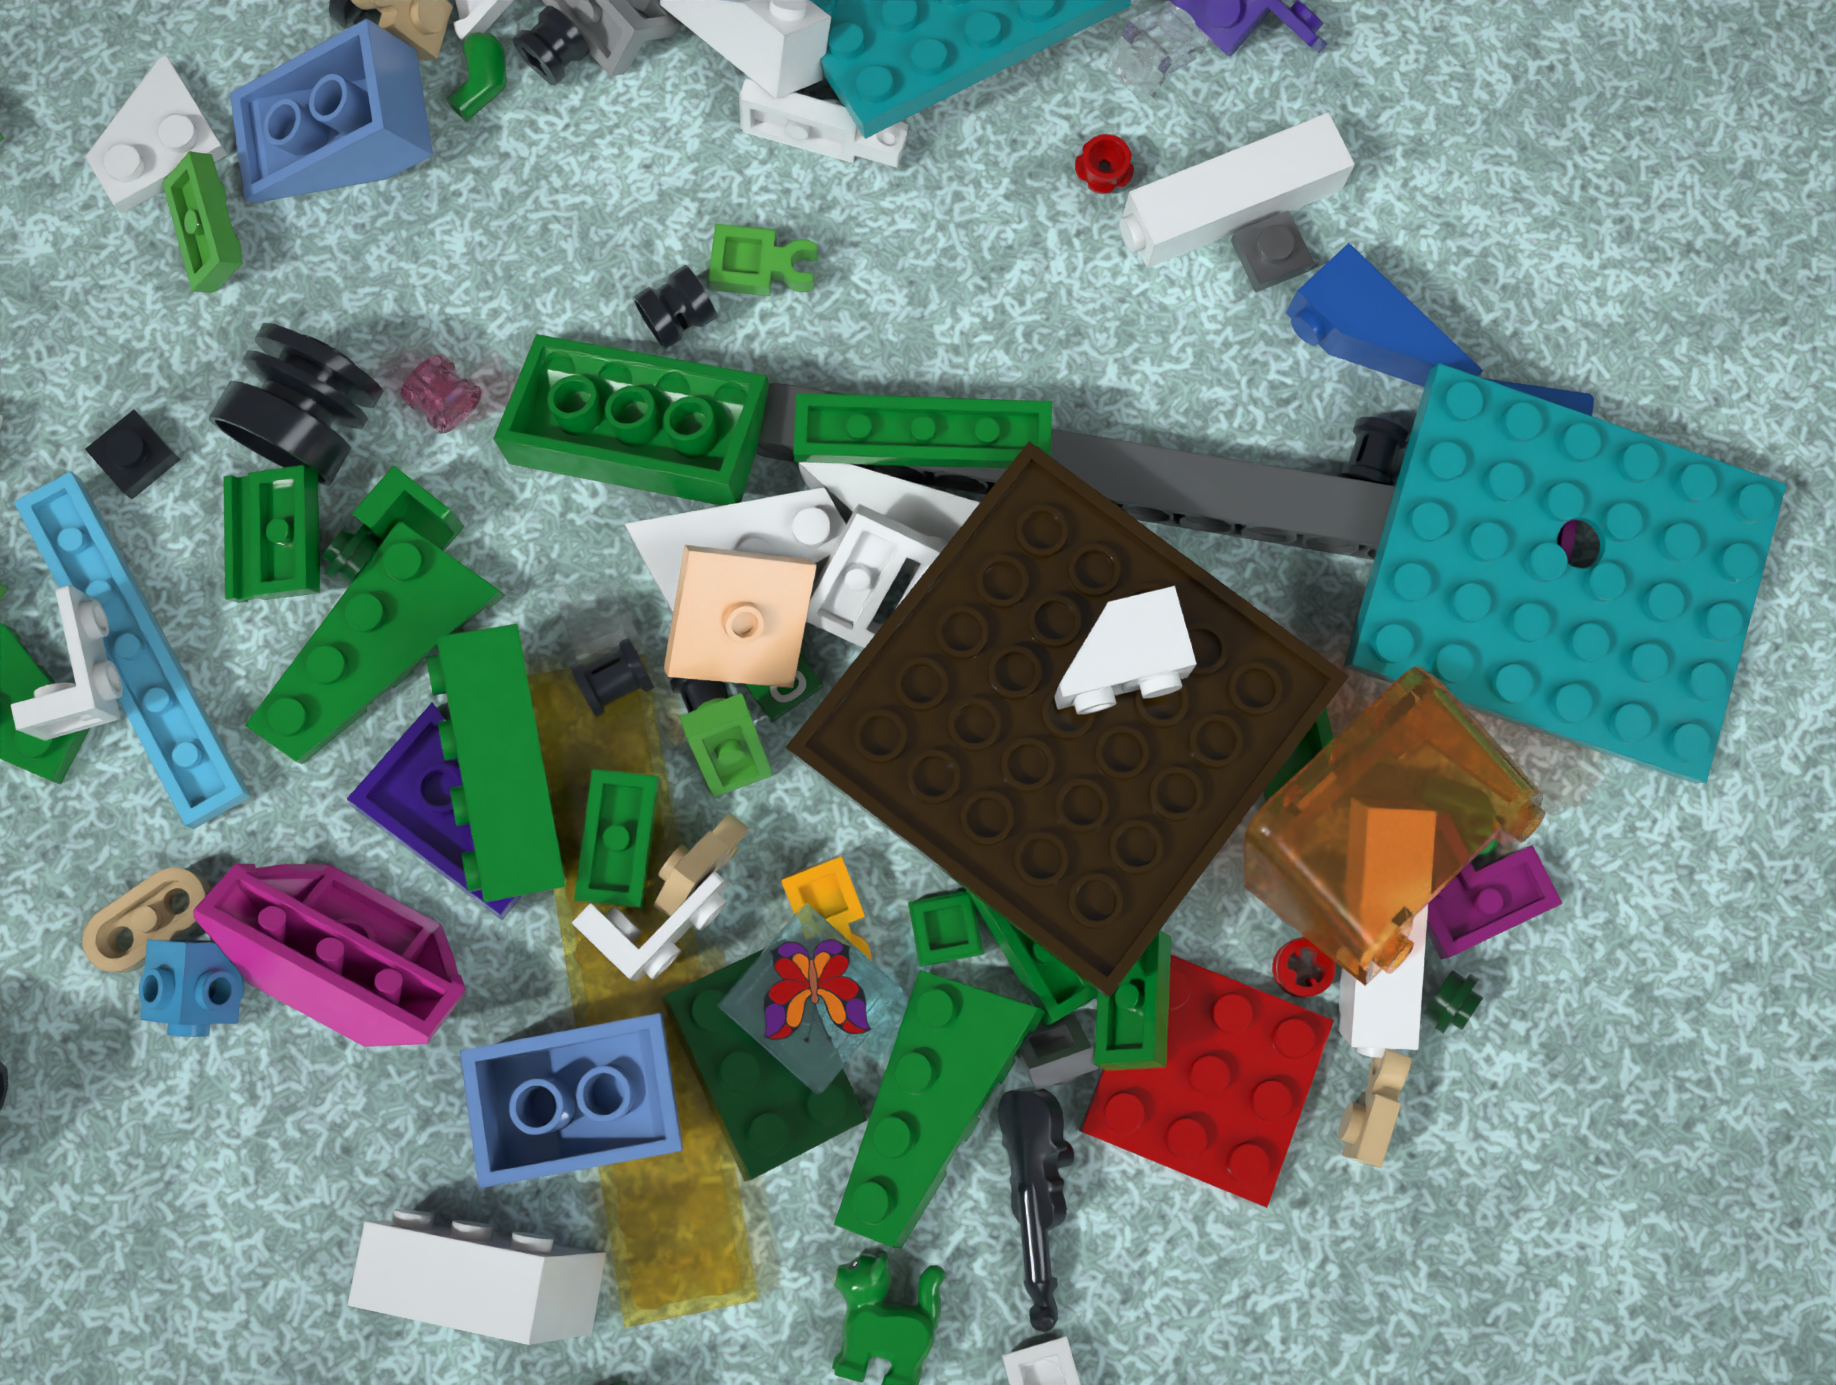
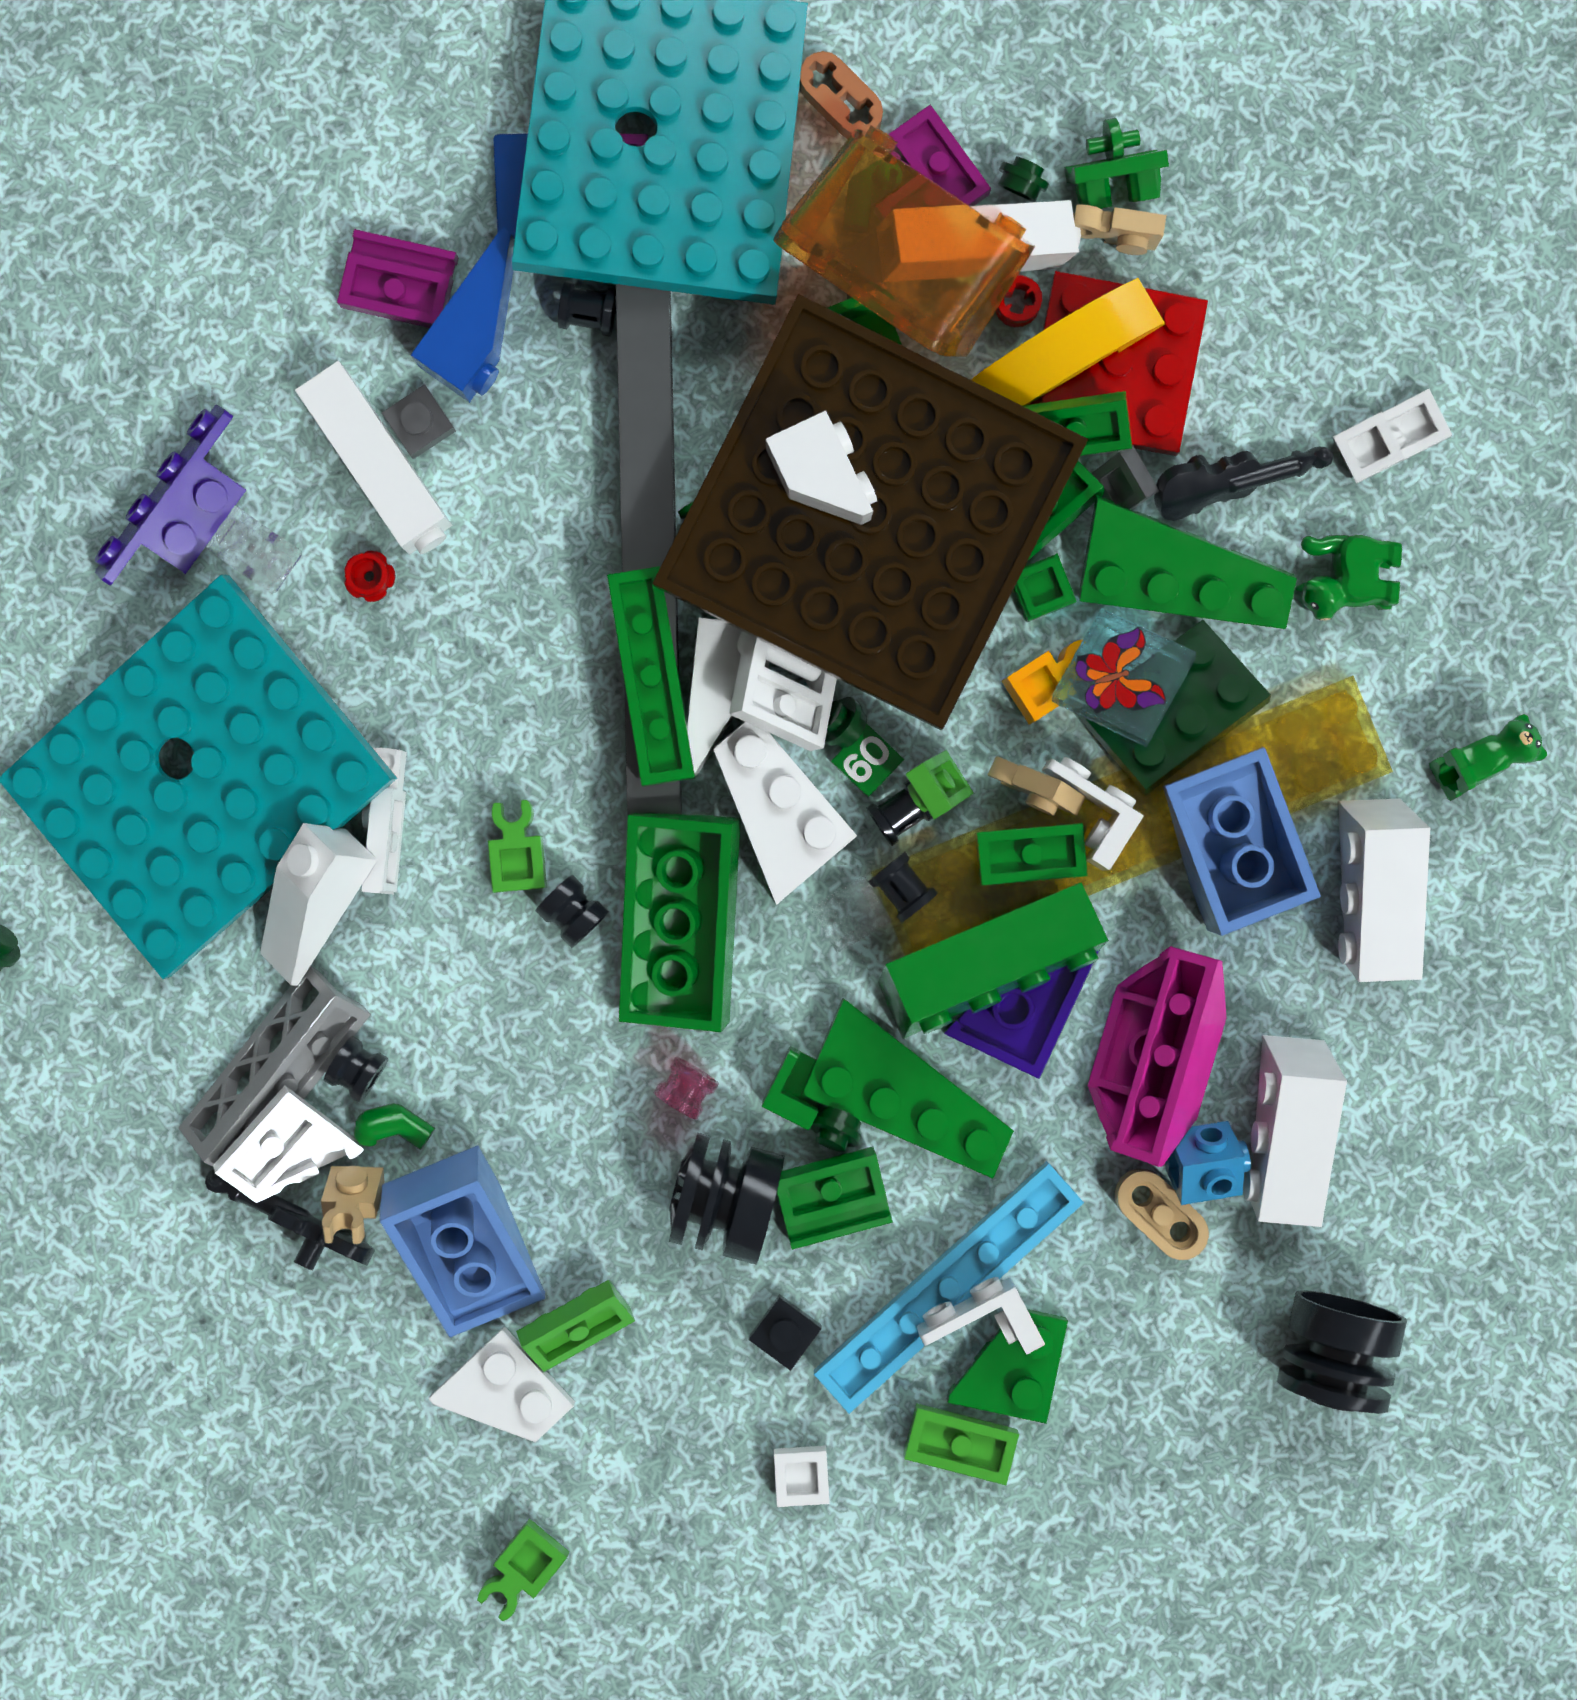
camera: 100 degrees left, 10 degrees up
(204, 1104) = (1294, 1131): none -> white wedge
(739, 616) = (837, 793): light nougat plate -> none
(826, 654) = (845, 722): none -> dark green plate
(1234, 1013) = (1073, 344): none -> yellow slope
(1441, 253) = (397, 279): none -> magenta plate
(1448, 1153) = (1140, 168): none -> green hips
(1595, 813) = (849, 88): none -> nougat beam

